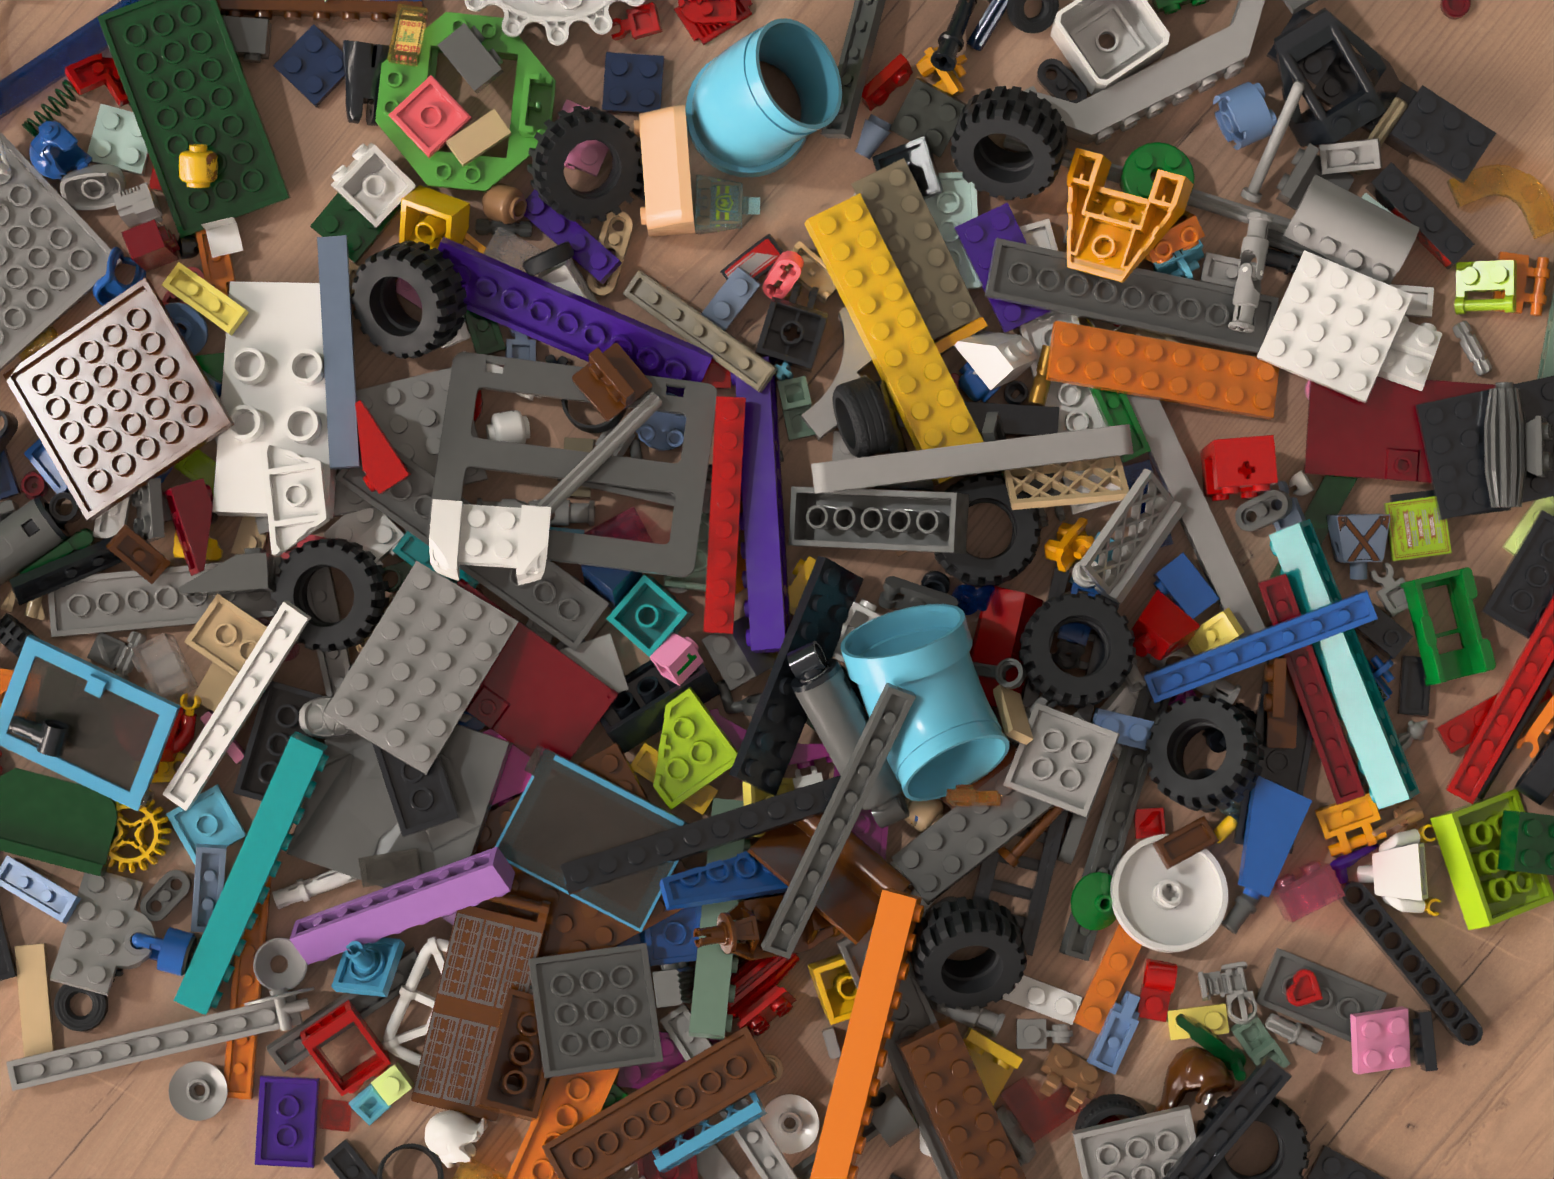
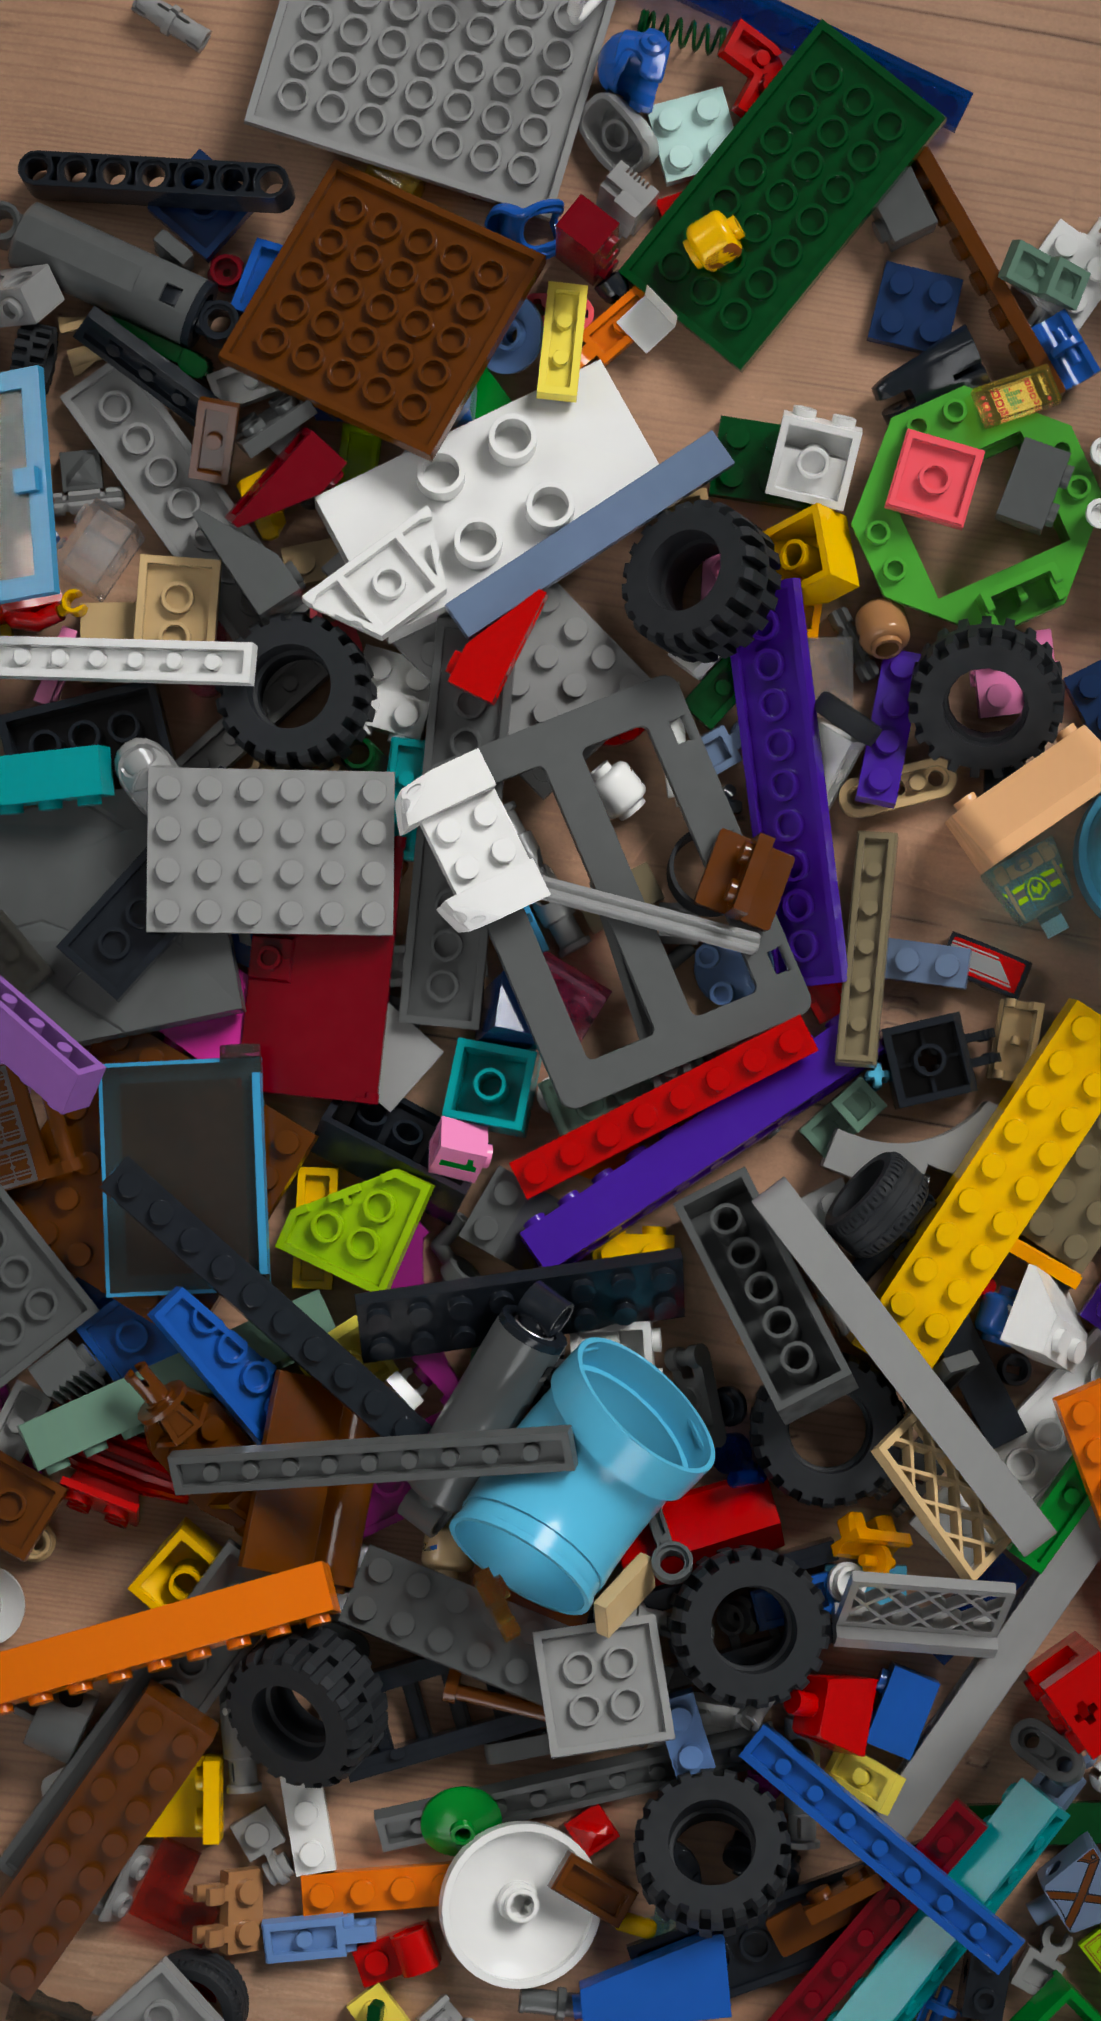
camera: 60 degrees right, 0 degrees up
(478, 137) = (943, 551): tan tile -> none
(787, 277) = (992, 1000): coral beam -> none
(831, 1042) = (108, 1600): light grey tile -> none
(1040, 385) = (1041, 1394): pearl gold piece -> none

